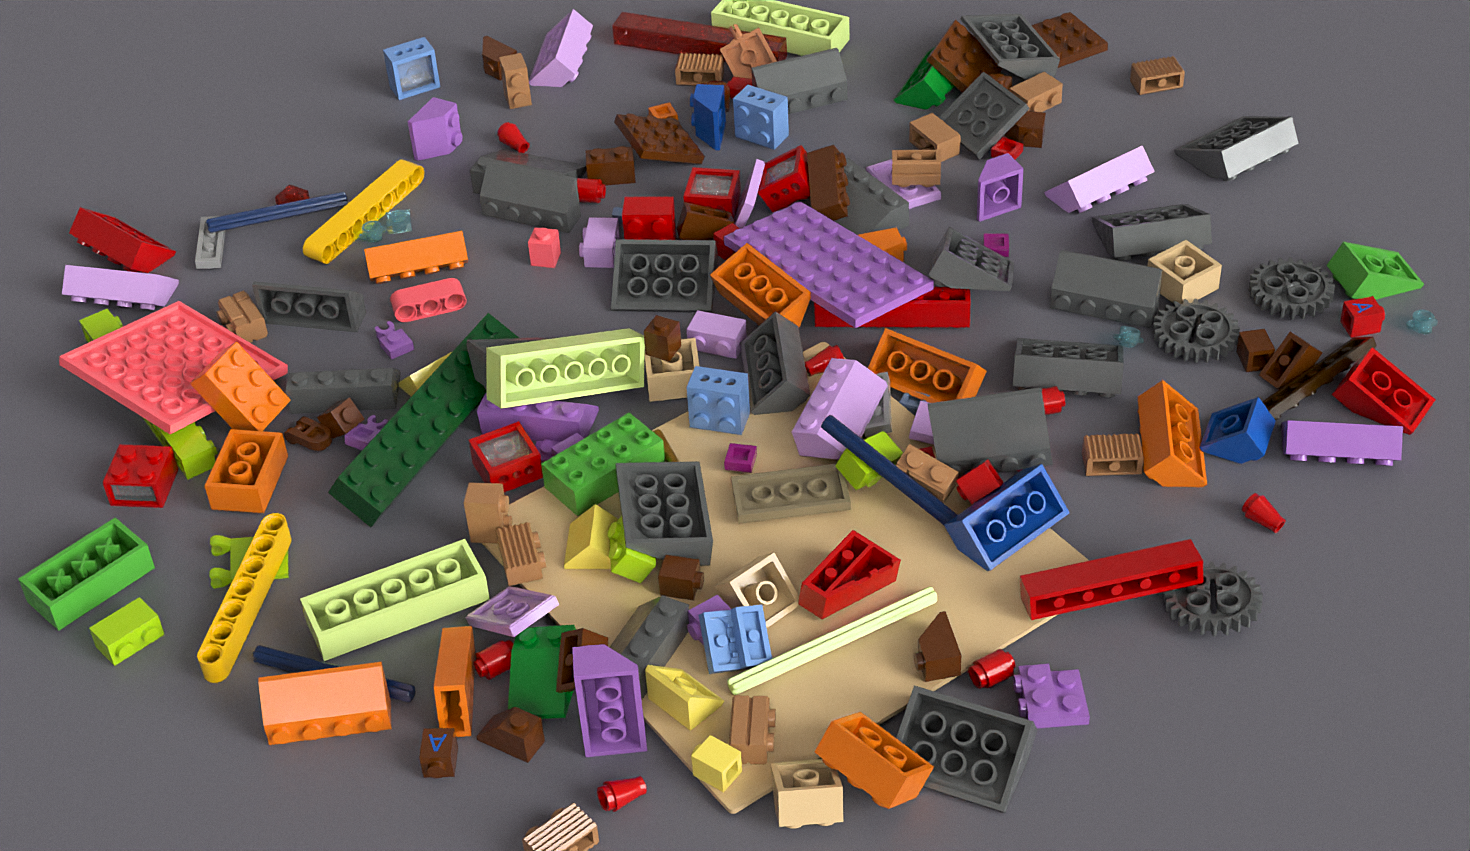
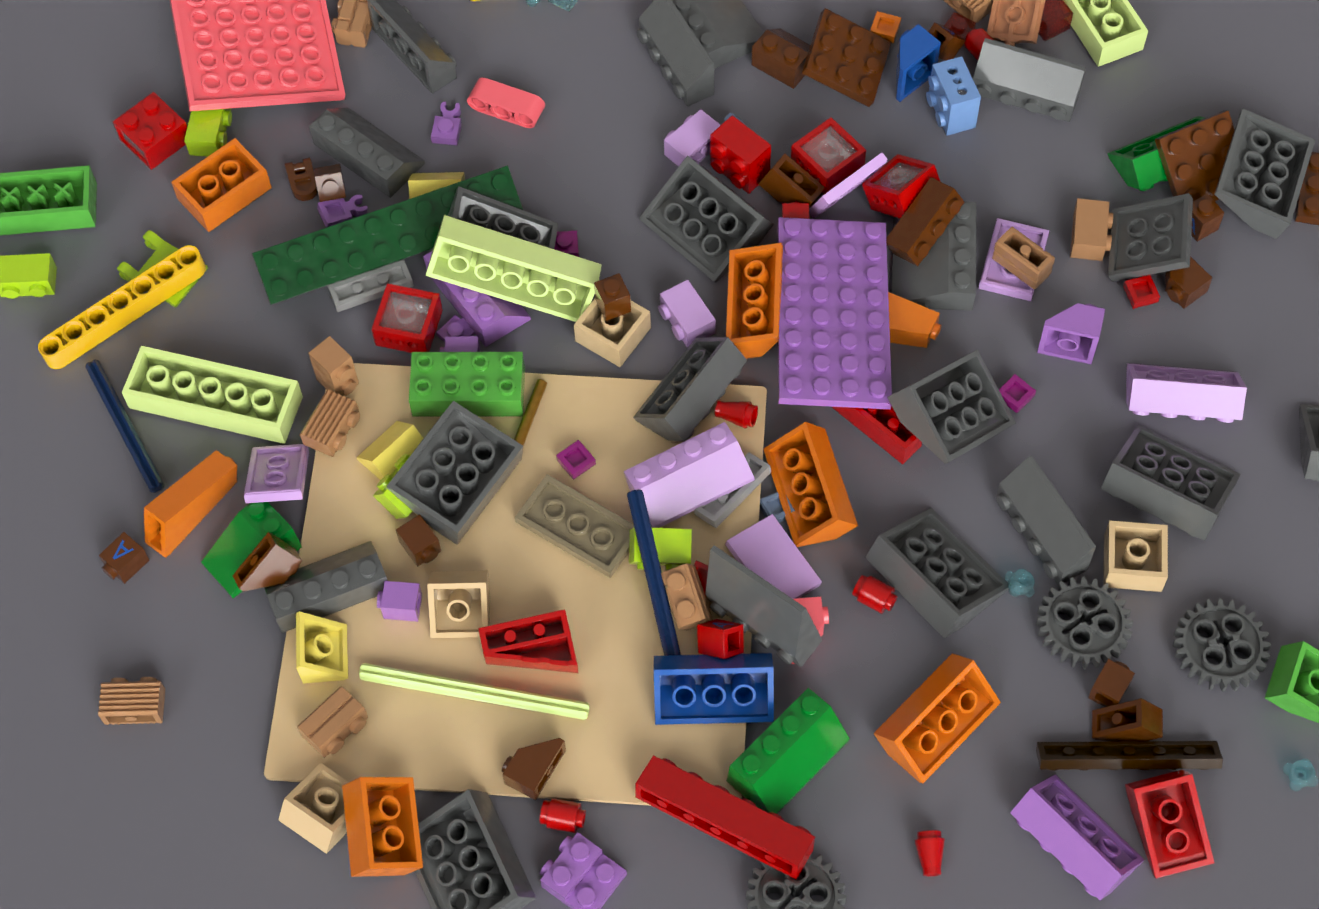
camera: 40 degrees right, 20 degrees up
(240, 390) = (271, 105): orange brick -> none
(325, 703) = (84, 455): slope -> none
(416, 256) = (537, 48): orange slope -> none
(444, 464) = (369, 285): none -> light grey plate
(494, 659) = (228, 504): red brick -> none
(514, 733) = (186, 583): reddish brown slope -> none
(544, 247) = (642, 113): coral brick -> none
(590, 190) = (738, 72): red brick -> none
(608, 701) = (237, 617): medium lavender slope -> none
(619, 793) = (208, 696): red cone -> none
(716, 763) = (282, 731): light yellow brick -> none
(718, 400) = (603, 392): medium blue piece -> none
(735, 638) = (396, 633): medium blue slope -> none
(1039, 92) = (1236, 245): medium nougat brick -> none
(1101, 516) = (788, 753): none -> green slope
(1112, 454) = (871, 692): medium nougat brick -> none
(1239, 432) = (998, 758): blue slope -> none
(1362, 316) = (1249, 727): red brick -> none

